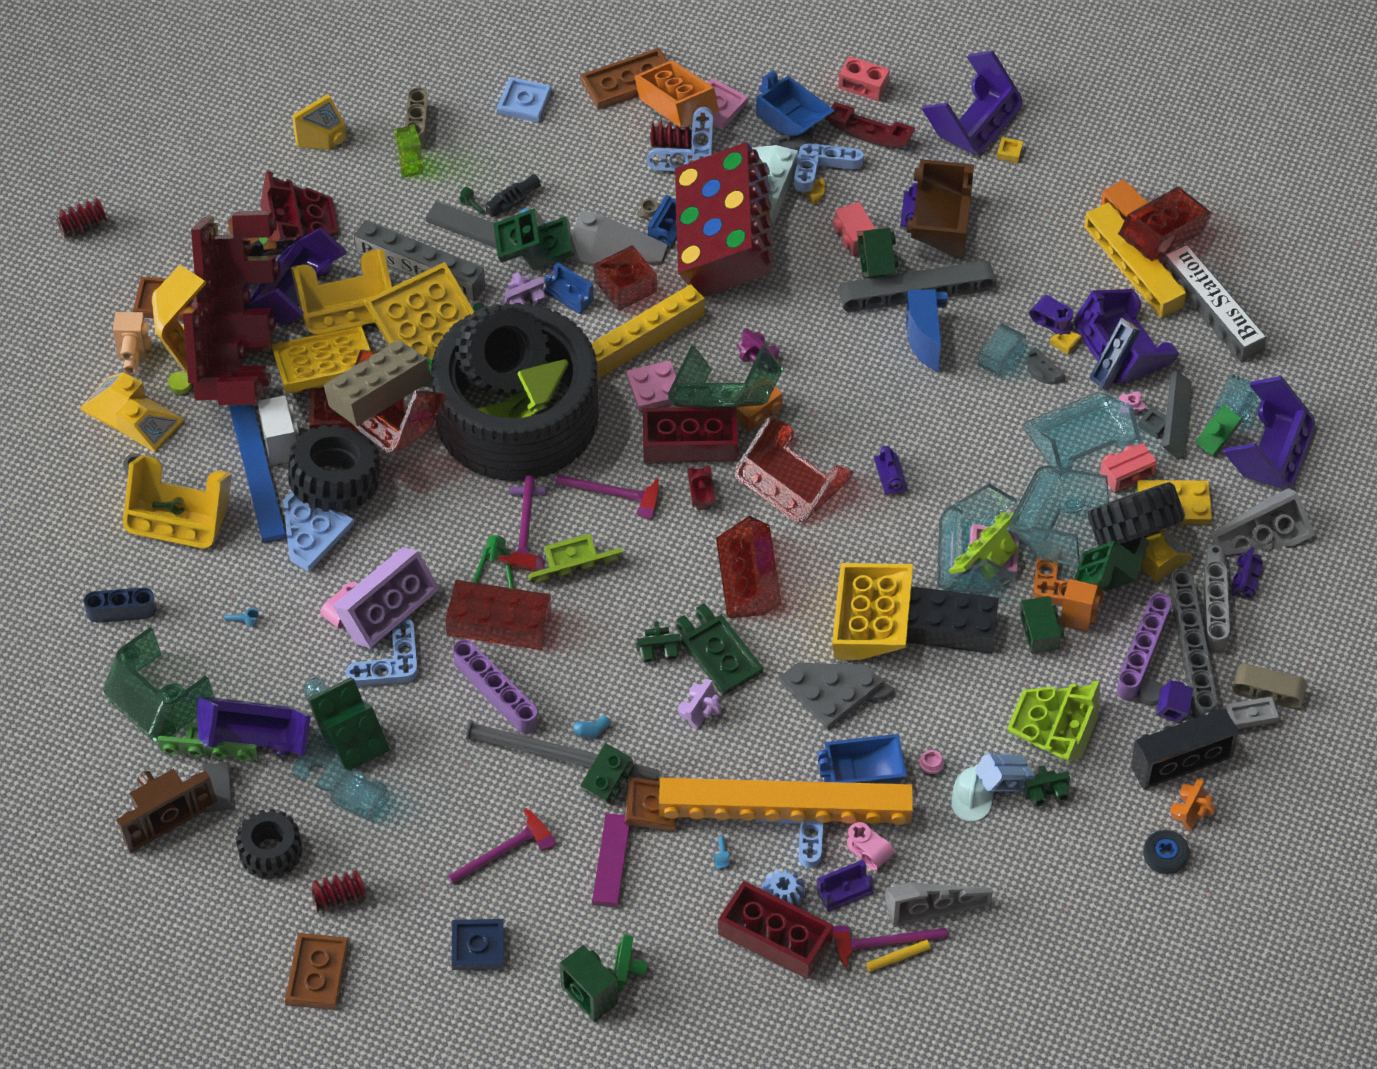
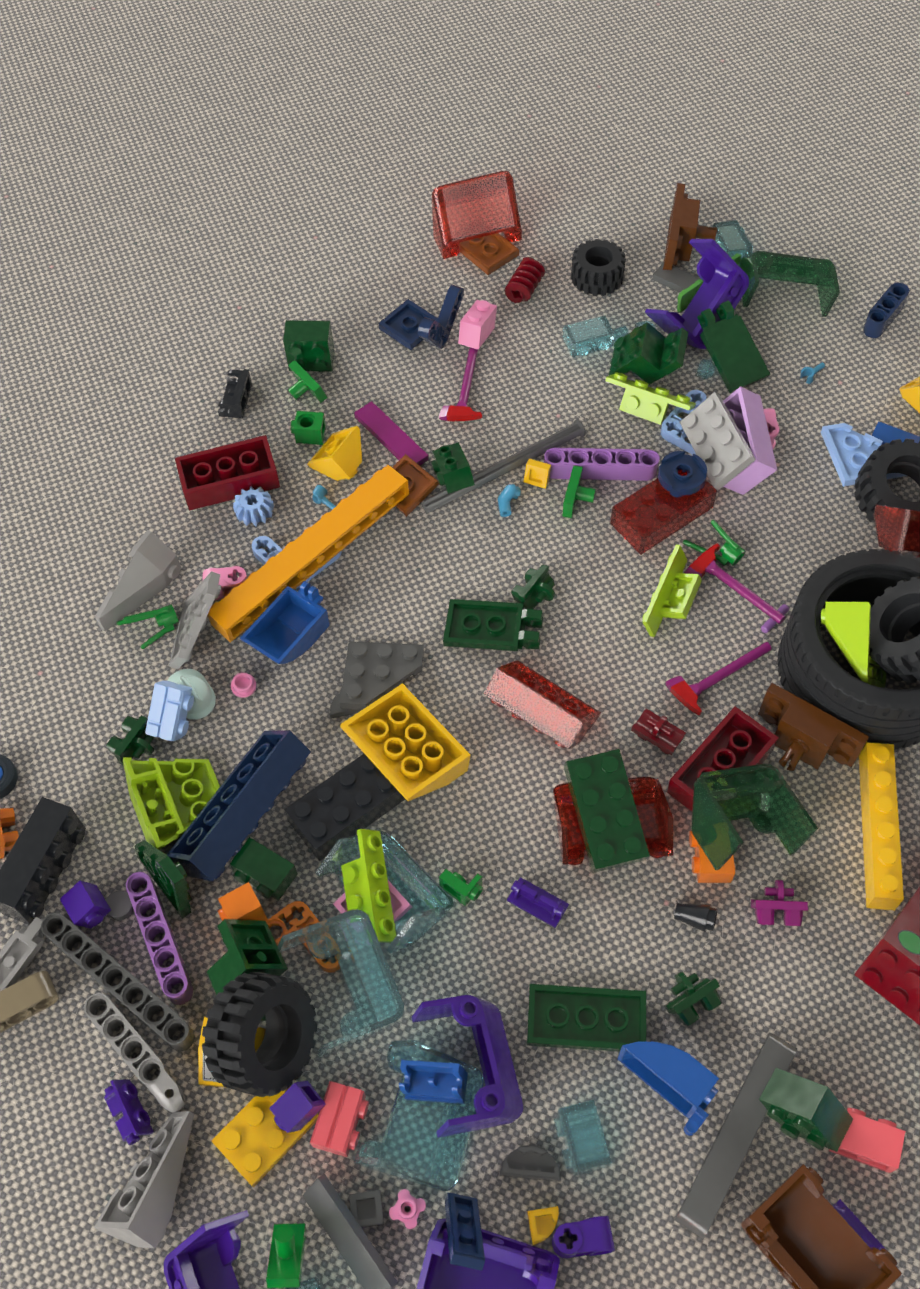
camera: 135 degrees right, 5 degrees up
(134, 761) = (732, 238): none -> clear light blue brick
(281, 674) = (732, 348): none -> dark green tile
(308, 972) = (474, 210): none -> clear red windscreen
(393, 698) = (647, 401): none -> bracket
(409, 605) = (717, 440): none -> light grey plate
(433, 879) = (477, 324): none -> bright pink brick
(466, 906) = (438, 332): none -> dark blue beam
(469, 612) = (678, 484): none -> dark blue plate
(542, 683) = (576, 492): none -> green tile
(549, 721) = (537, 473): none -> yellow tile
(619, 401) = (808, 731): none -> reddish brown brick
(651, 384) = (816, 792): bright pink plate -> none
(665, 910) = (309, 427): none -> green brick
(672, 874) = (339, 455): none -> yellow slope
(690, 1010) = (235, 394): none -> black hinge
(703, 704) = (450, 574): lavender hips -> none
(796, 466) = (606, 811): none -> dark green brick
(807, 384) = (697, 915): none -> black cone
(844, 886) = (216, 545): dark purple hinge -> none
(846, 946) = (175, 514): magenta piece -> none
(863, 354) = (683, 1004): none -> dark green hips
(898, 955) = (132, 538): yellow piece -> none
(923, 822) = (194, 618): none -> light grey plate
(927, 511) = (456, 886): none -> green bracket
(934, 396) = (585, 1017): none -> dark green plate
(939, 860) = (164, 617): none -> green plant
(999, 438) = (500, 1098): none -> dark purple windscreen
(1018, 665) = (239, 804): none -> dark blue brick
(1051, 425) = (433, 1081): none -> blue hinge
(1108, 663) = (167, 876): none -> dark green plate
(1147, 475) = (297, 1106): none -> dark purple brick

